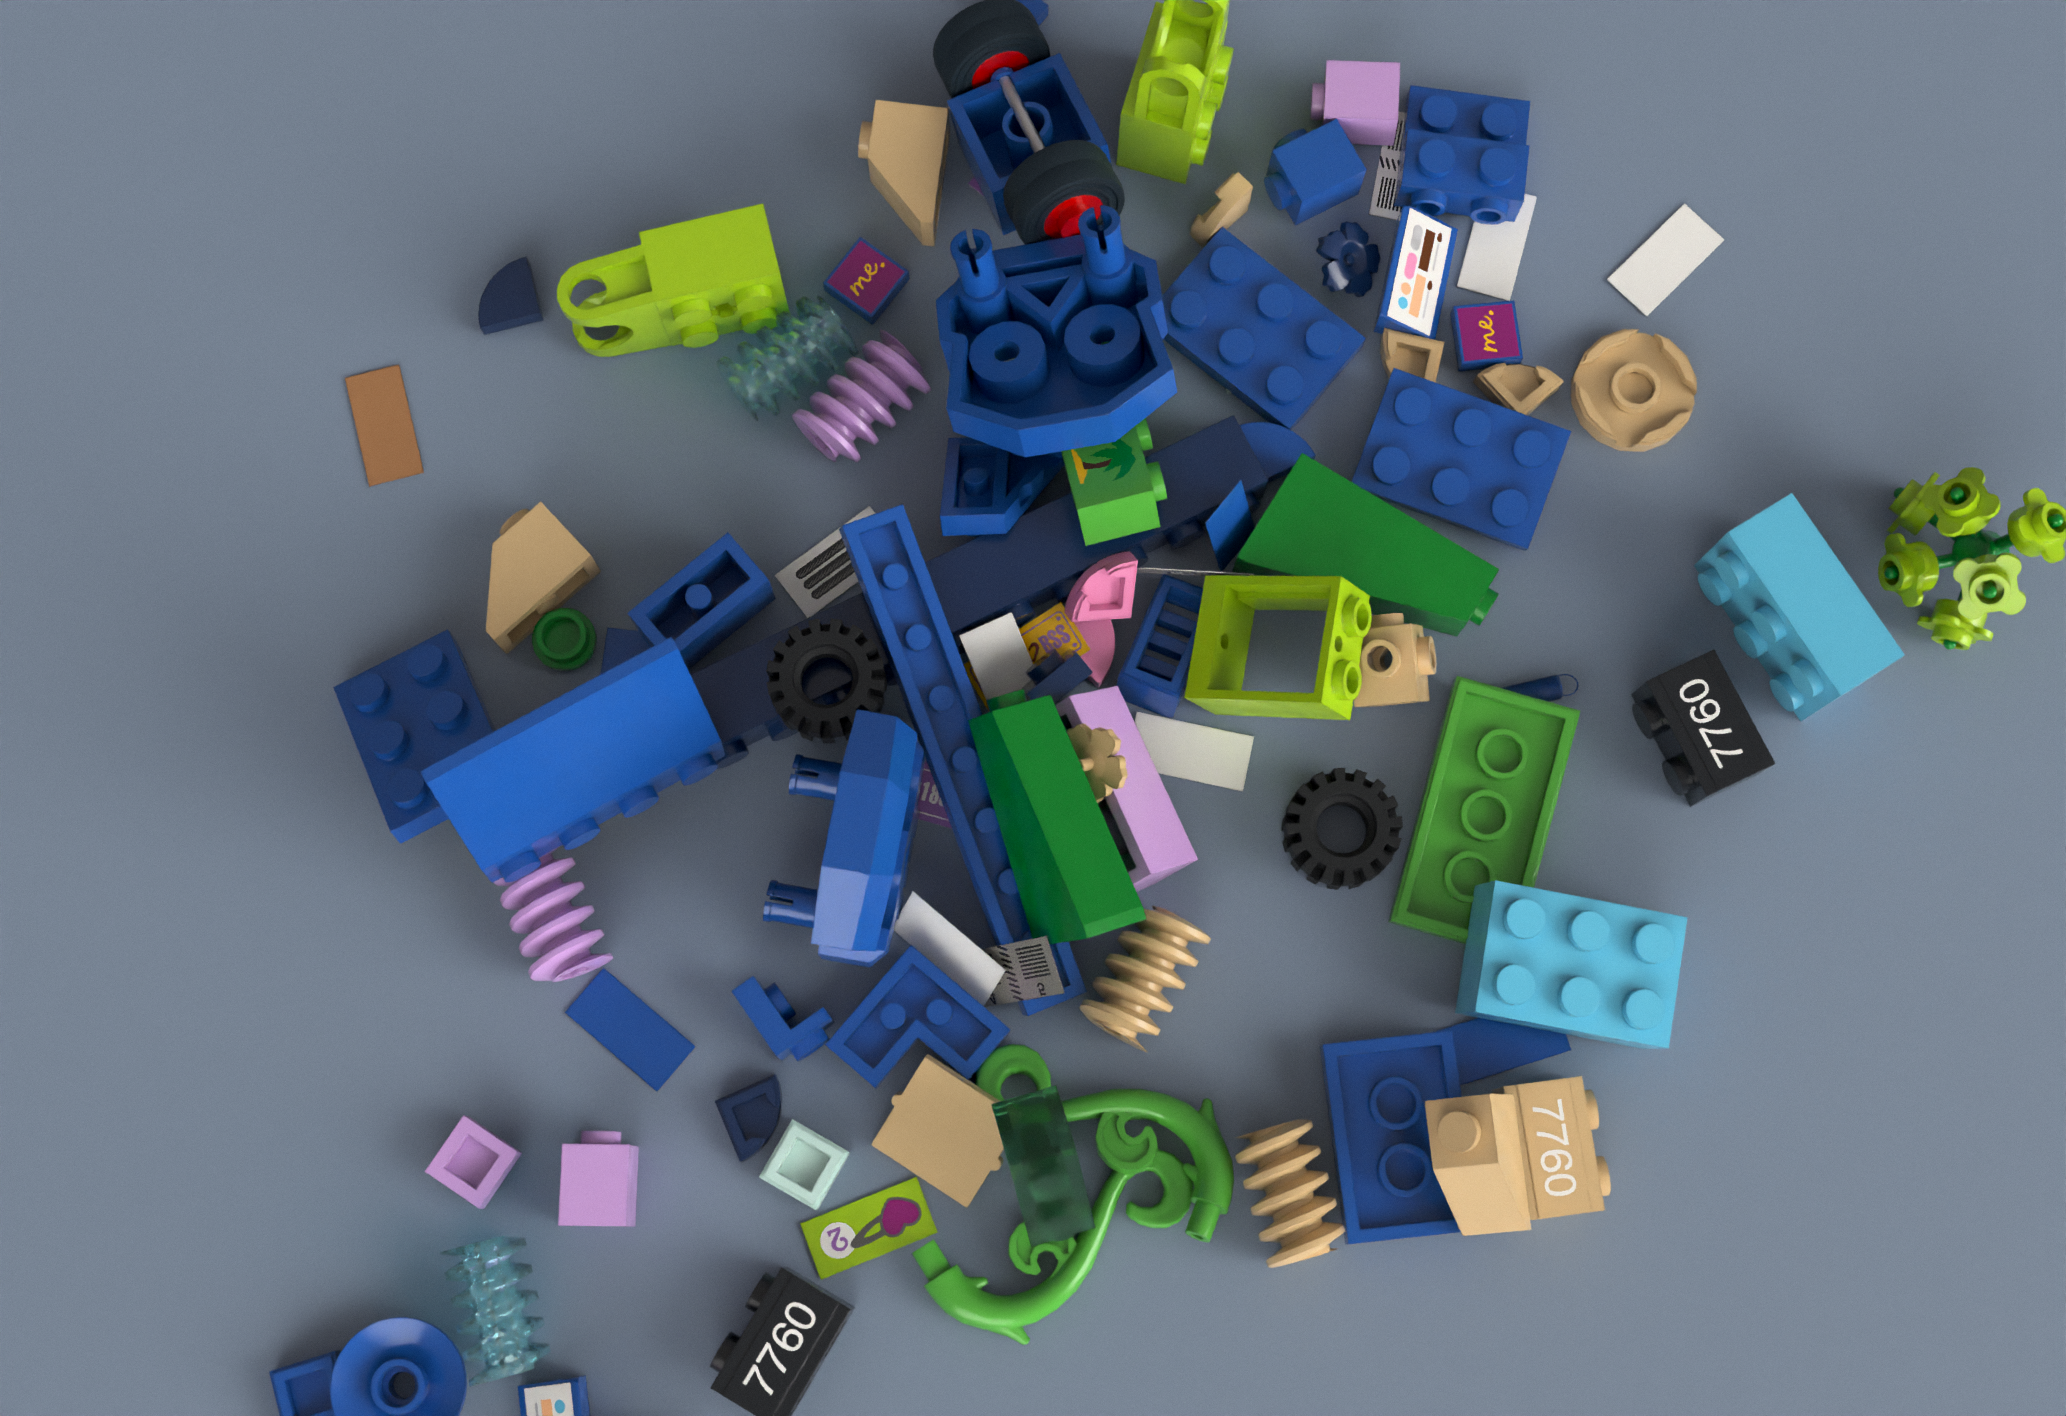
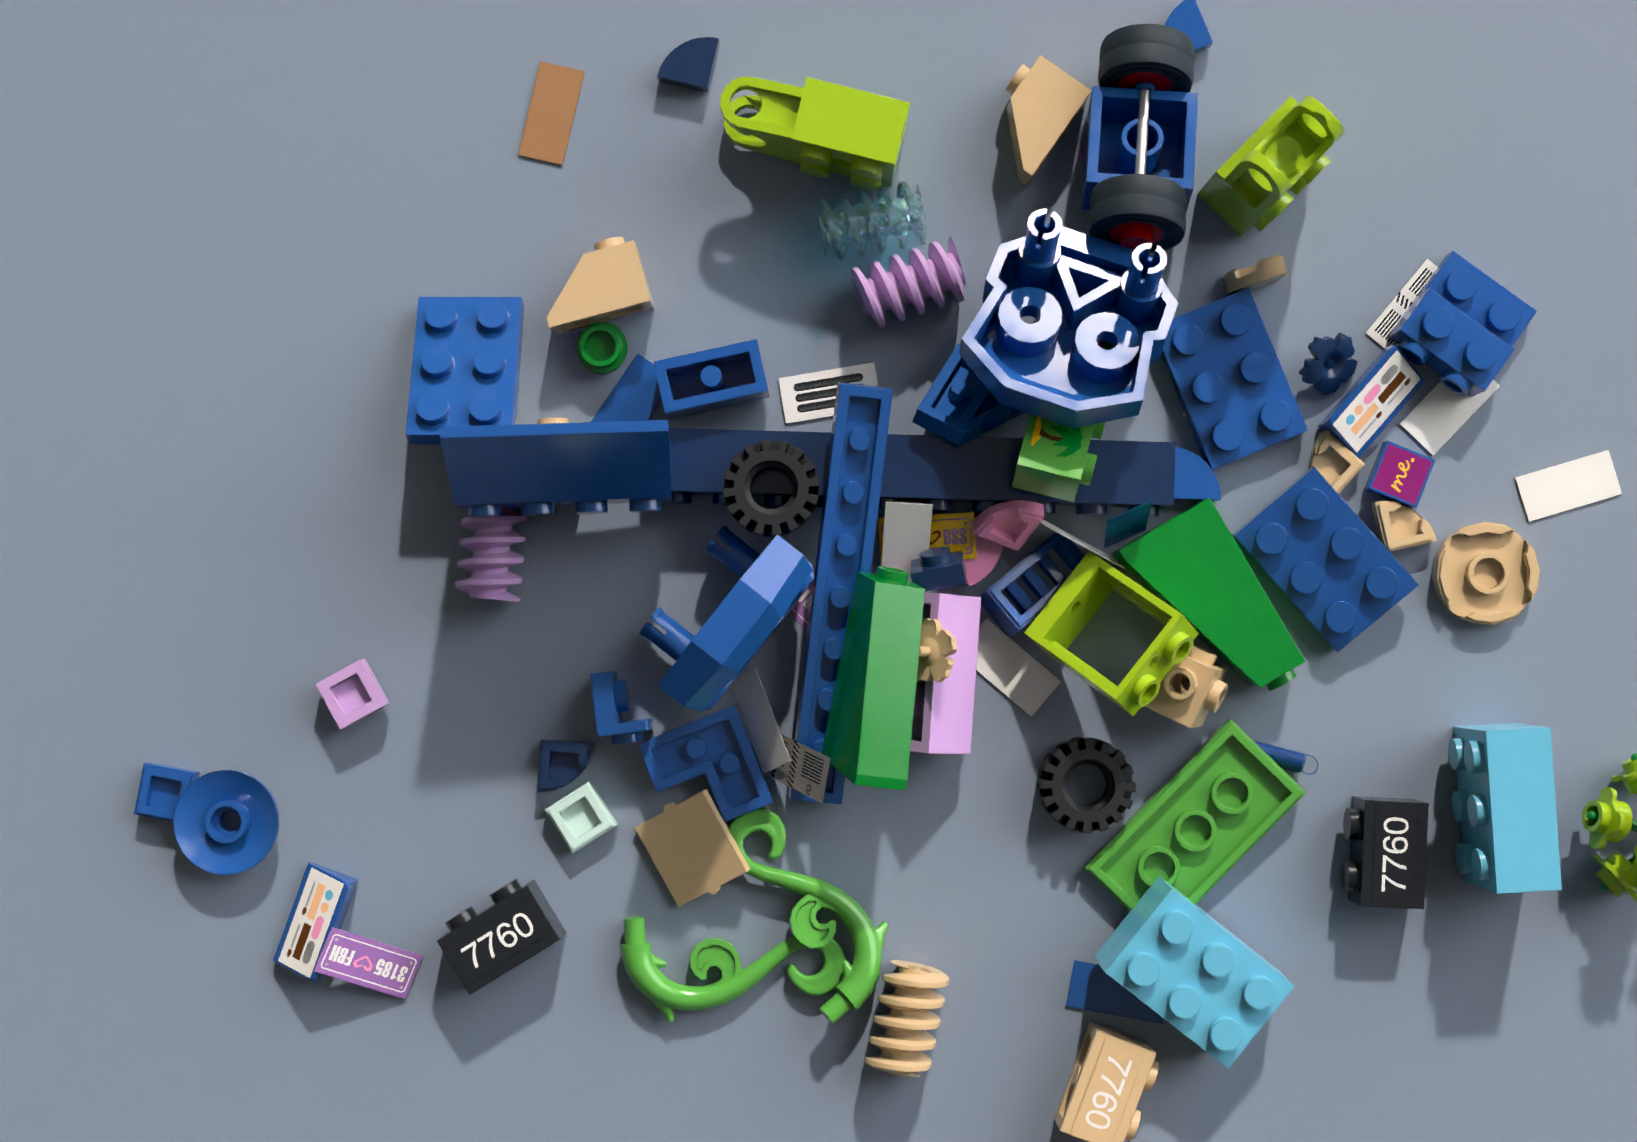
camera: 30 degrees right, 10 degrees up
(496, 1308) = (320, 805): clear light blue piece -> none
(598, 1181) = (431, 755): lavender brick -> none
(630, 1029) = (508, 655): blue sticker -> none
(866, 280) = (961, 188): magenta tile -> none
(868, 1228) = (603, 883): lime sticker -> none
(1044, 1166) = (743, 914): clear green brick -> none
(1143, 975) = (886, 816): tan piece -> none
(1313, 171) = (1340, 281): blue brick -> none
(1361, 99) = (1404, 244): lavender brick -> none
(1382, 1134) = (1005, 1022): blue plate -> none
(1479, 1162) = (1050, 1074): tan slope -> none

